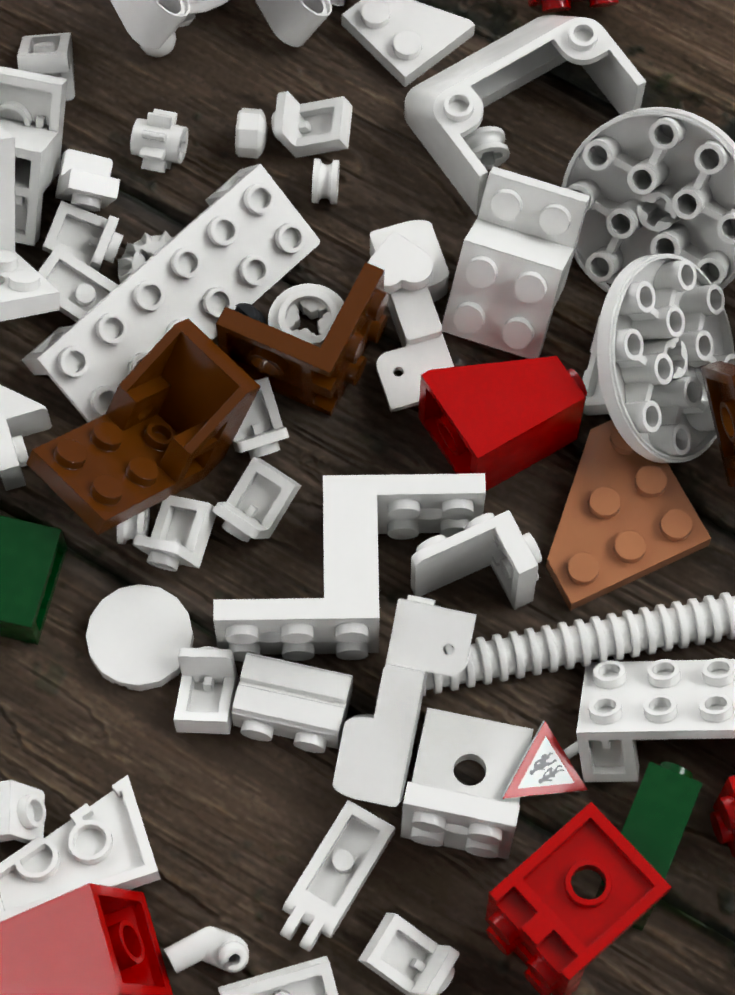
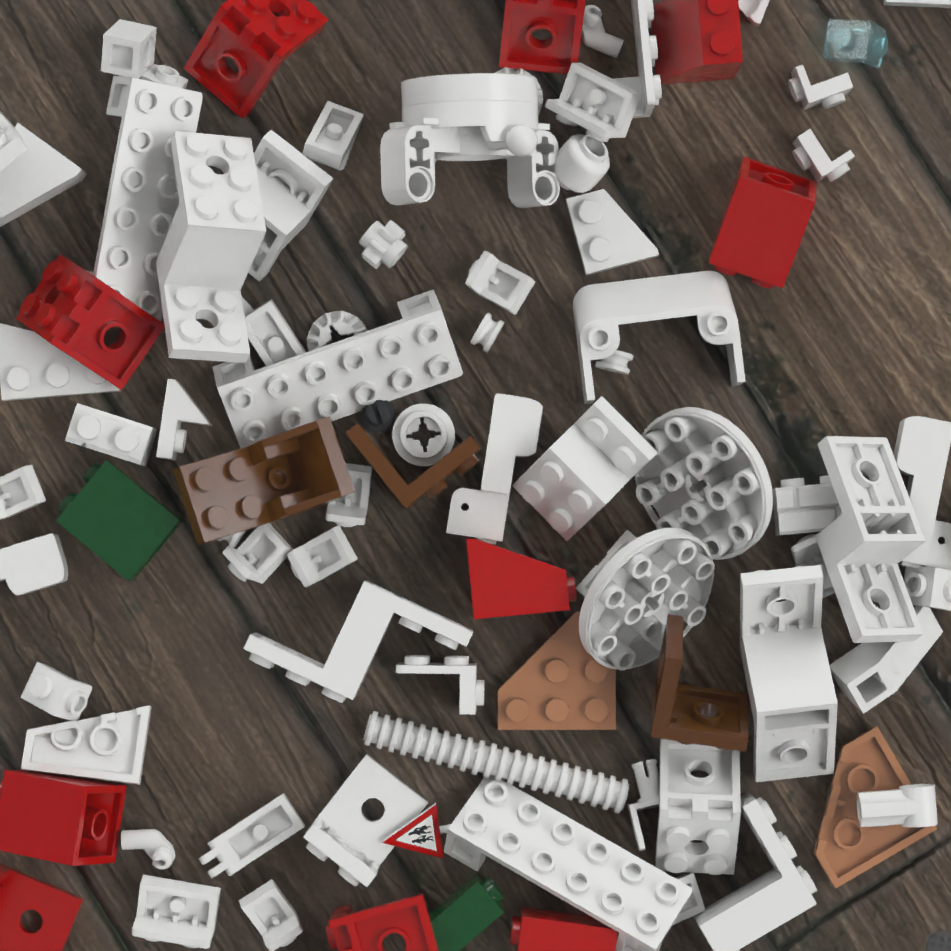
camera: 20 degrees right, 20 degrees up
(84, 235) = (295, 296): white bracket -> none
(86, 180) = (315, 253): white bracket -> none
(138, 636) = (201, 611): white tile -> none
(206, 690) = (225, 675): white bracket -> none
(250, 133) = (452, 267): white tile -> none
(291, 702) = (278, 709): white brick -> none
(379, 746) = (322, 766): white piece -> none
(403, 263) = (501, 432): white tile -> none

